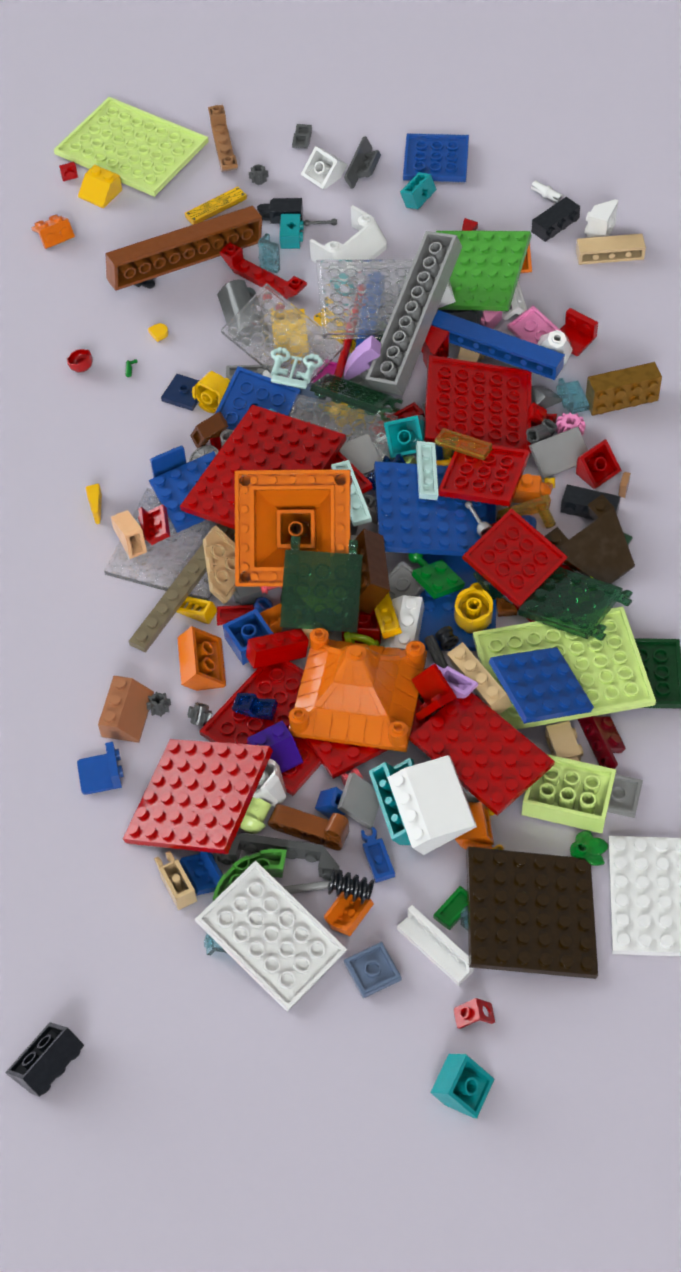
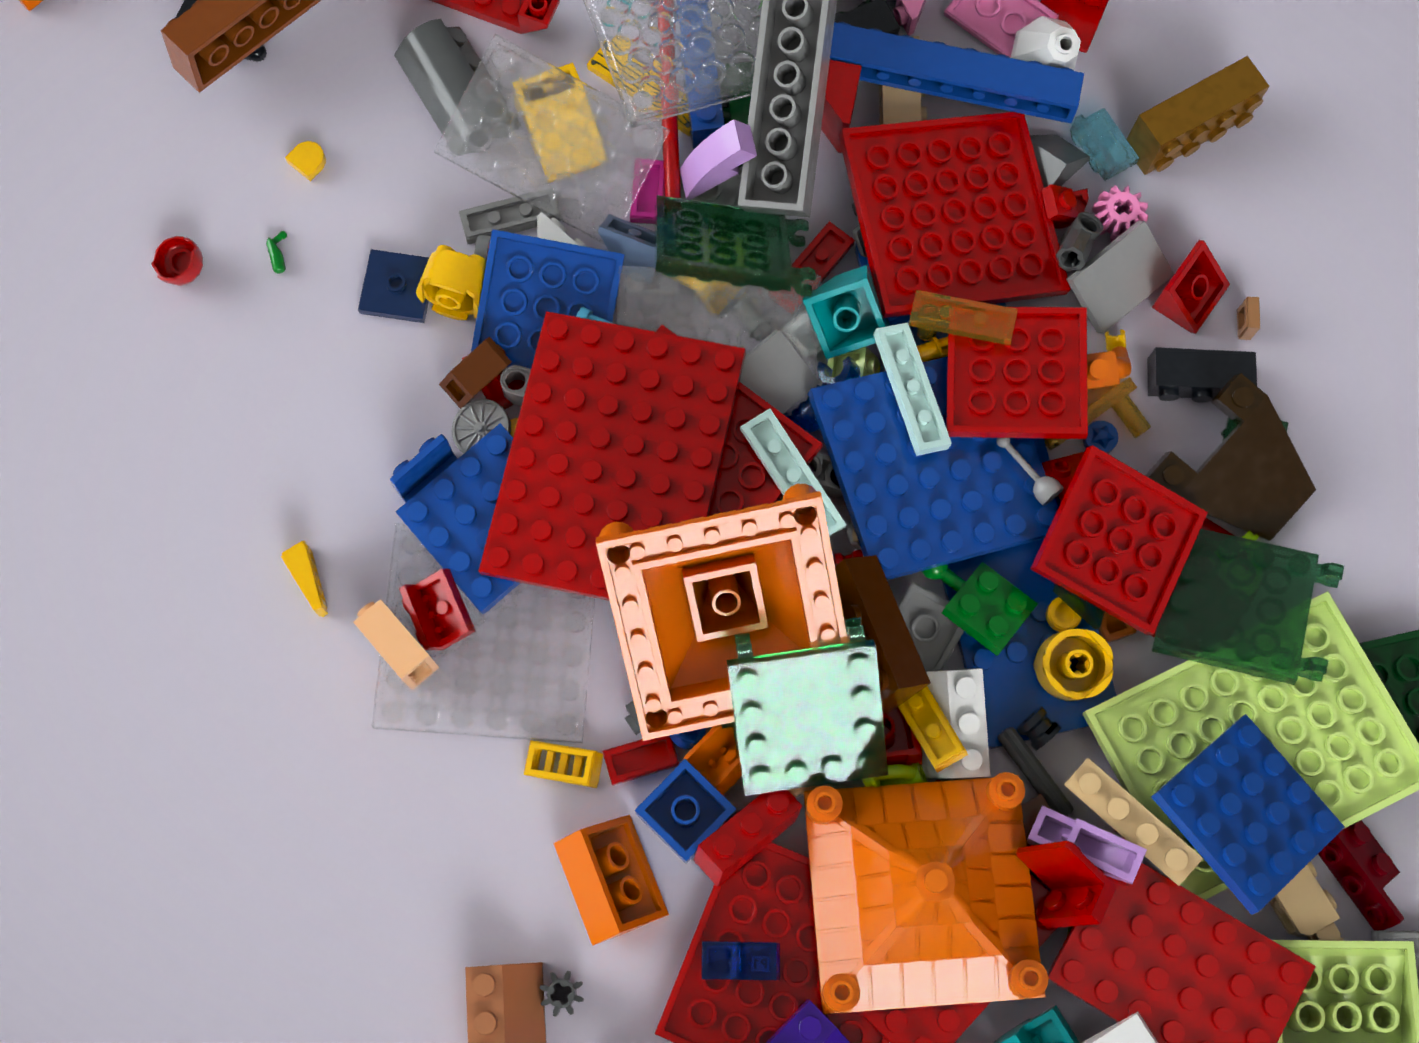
camera: 20 degrees left, 20 degrees up
(173, 598) = (527, 740): dark tan plate -> none
(199, 714) = (644, 998): dark grey gear -> none
(220, 563) = (590, 668): tan plate -> none
(279, 359) = (567, 221): light aqua piece -> none

